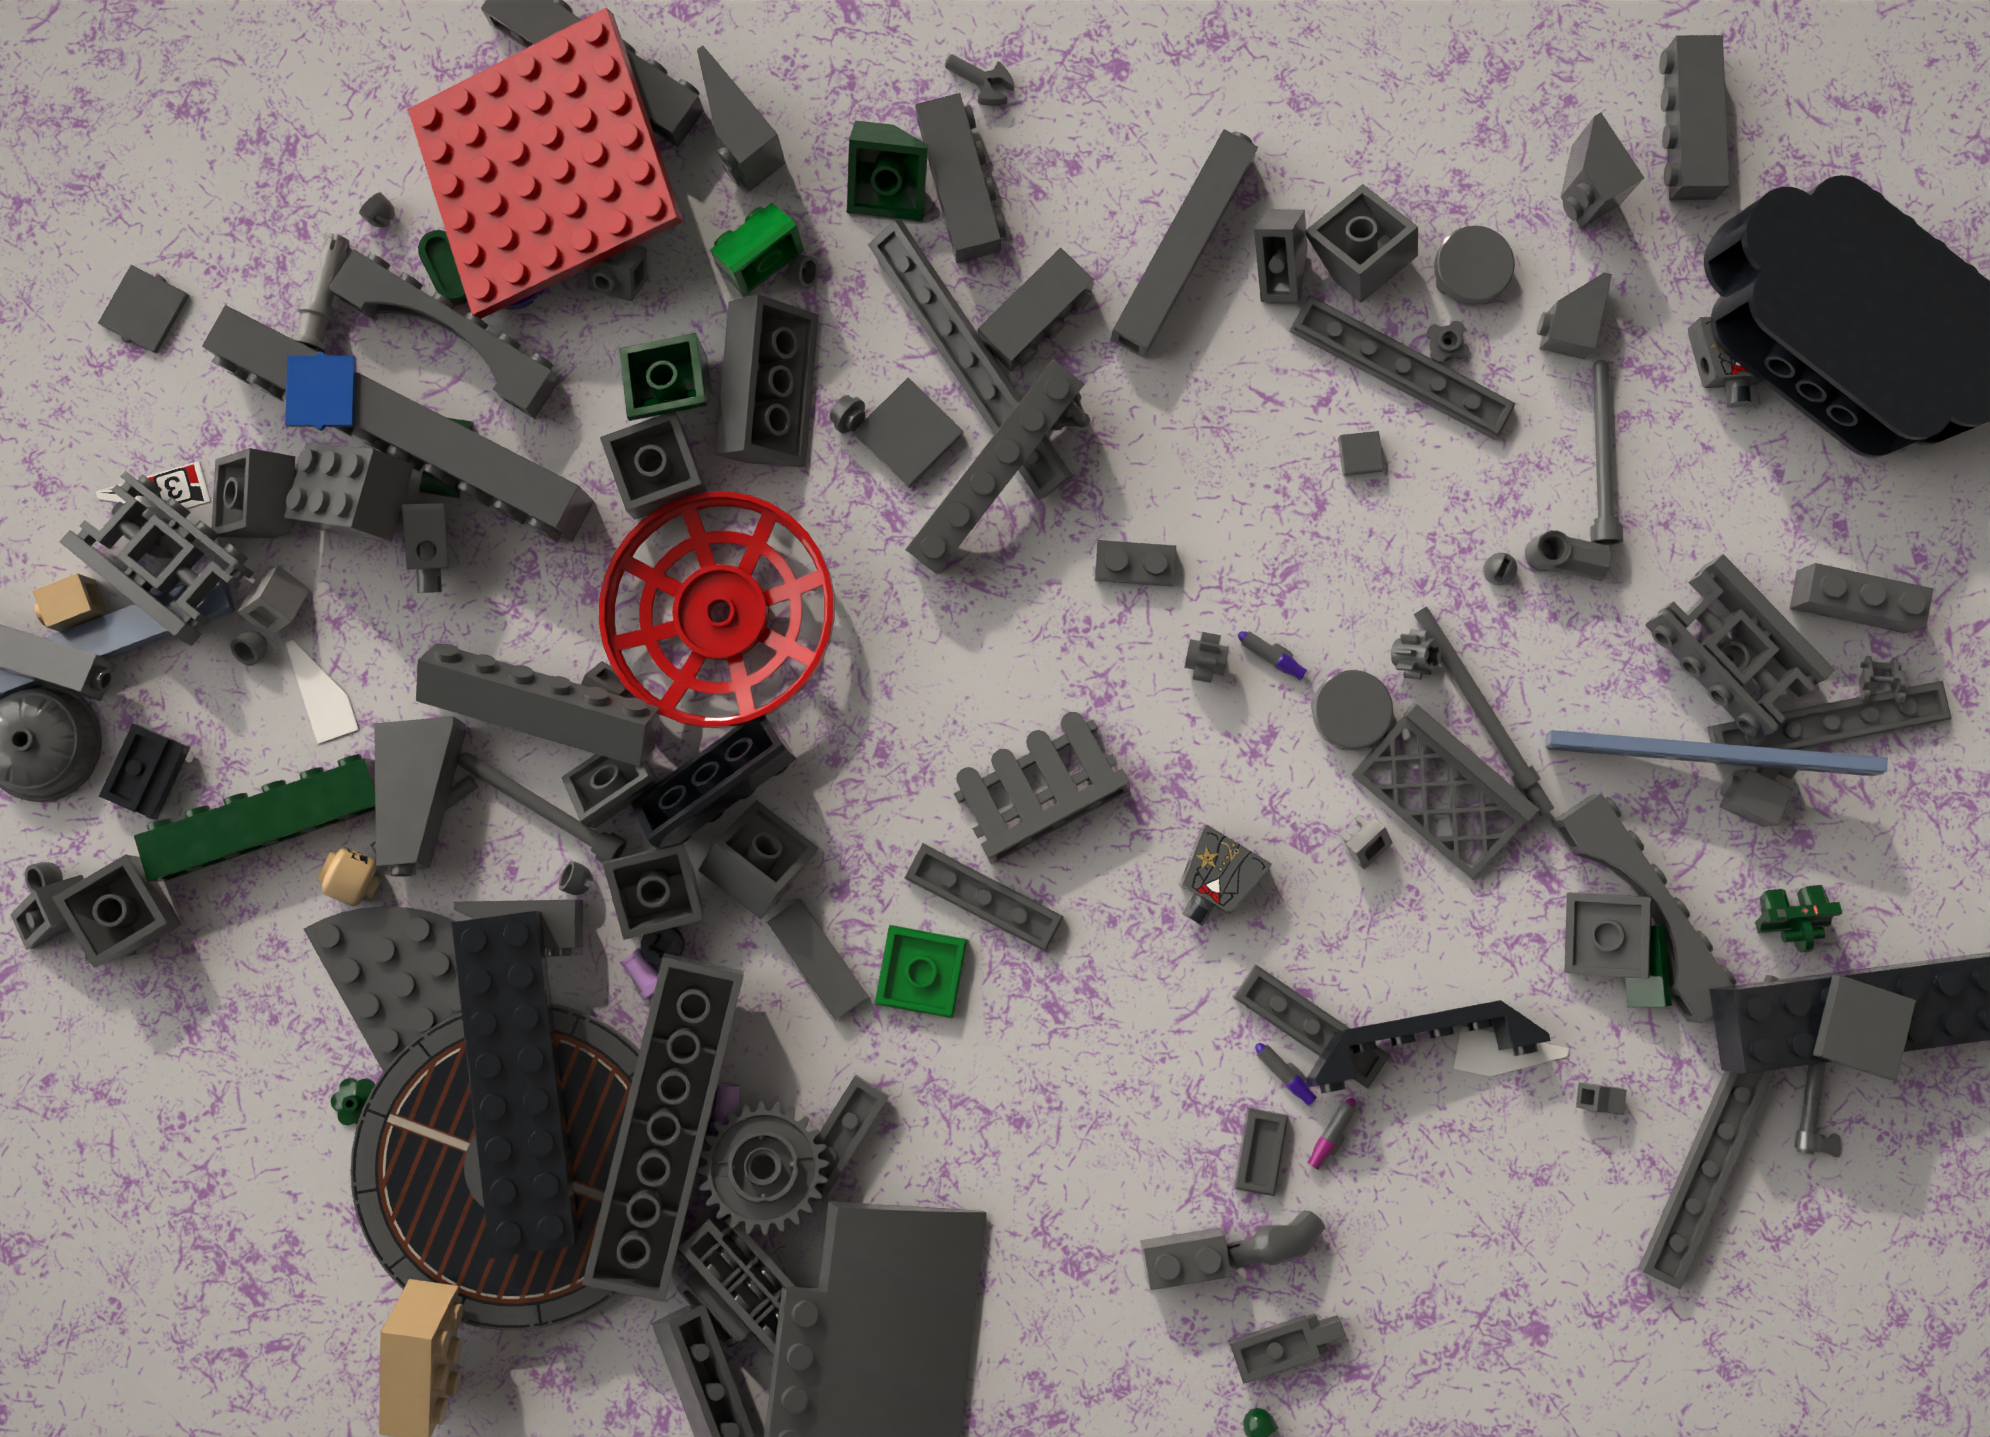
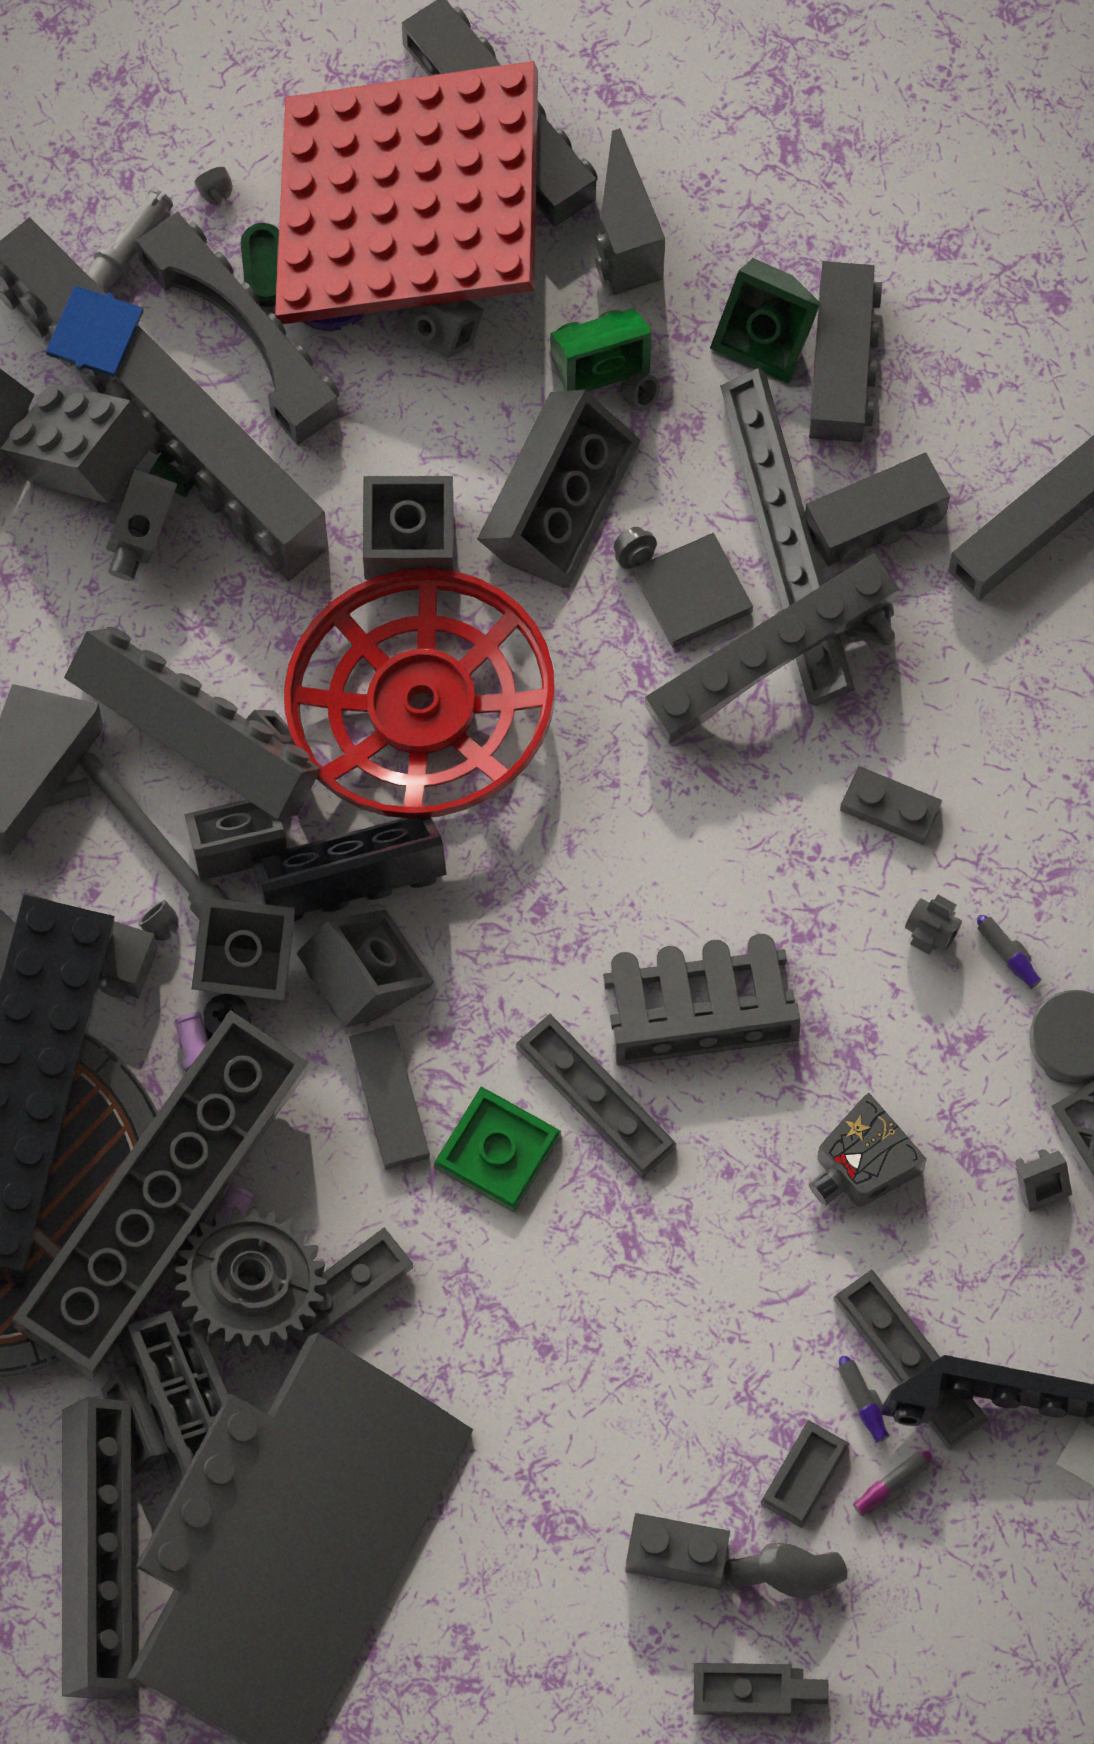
camera: 20 degrees right, 15 degrees down
(665, 376) = (455, 439): dark green slope -> none
(983, 79) = (906, 264): dark grey bar -> none

